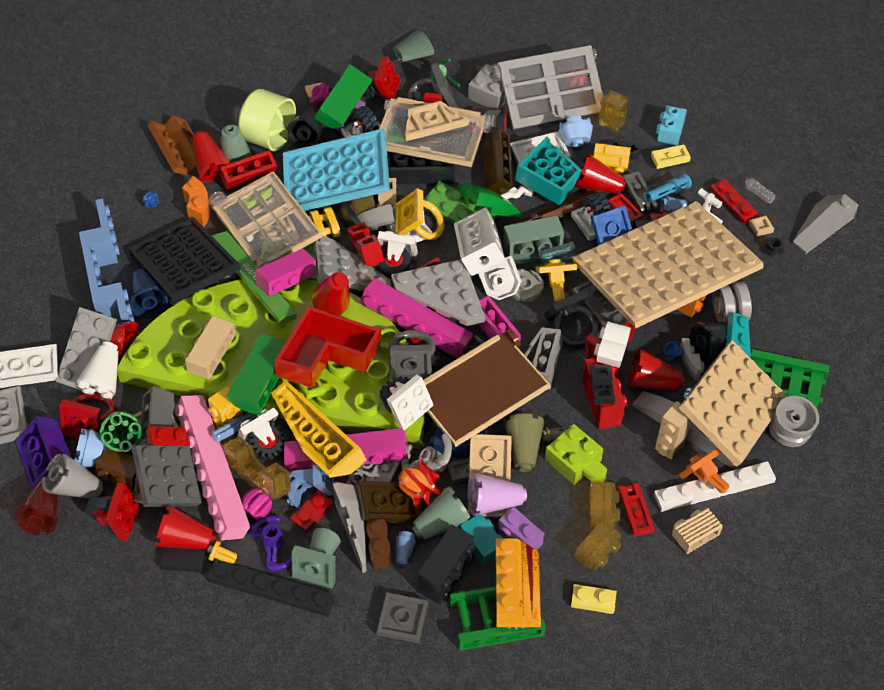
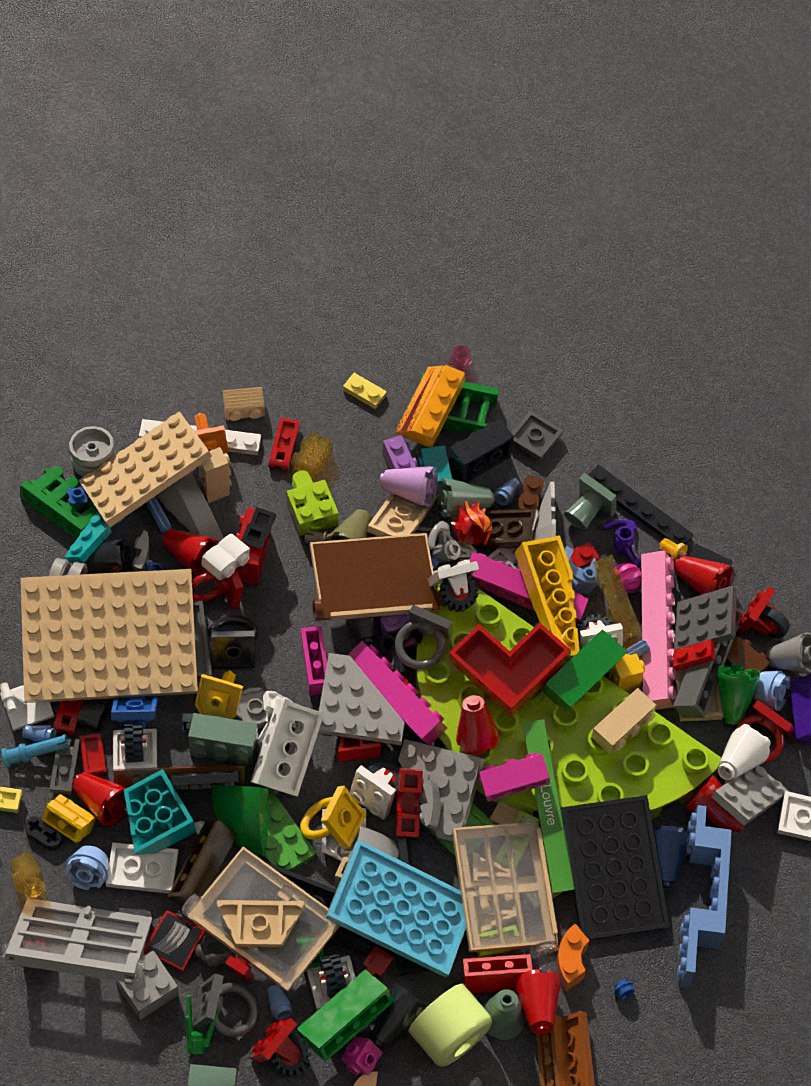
camera: 160 degrees left, 5 degrees up
(329, 217) = (447, 858): yellow brick -> none
(346, 244) = (431, 810): none -> light grey slope
(515, 679) = (460, 357): none -> clear pink brick
(528, 200) = (205, 779): none -> black plate
(545, 352) = (289, 607): light grey wedge -> none
(598, 546) = (338, 423): clear yellow brick -> none
(778, 375) = (77, 500): none -> blue plate

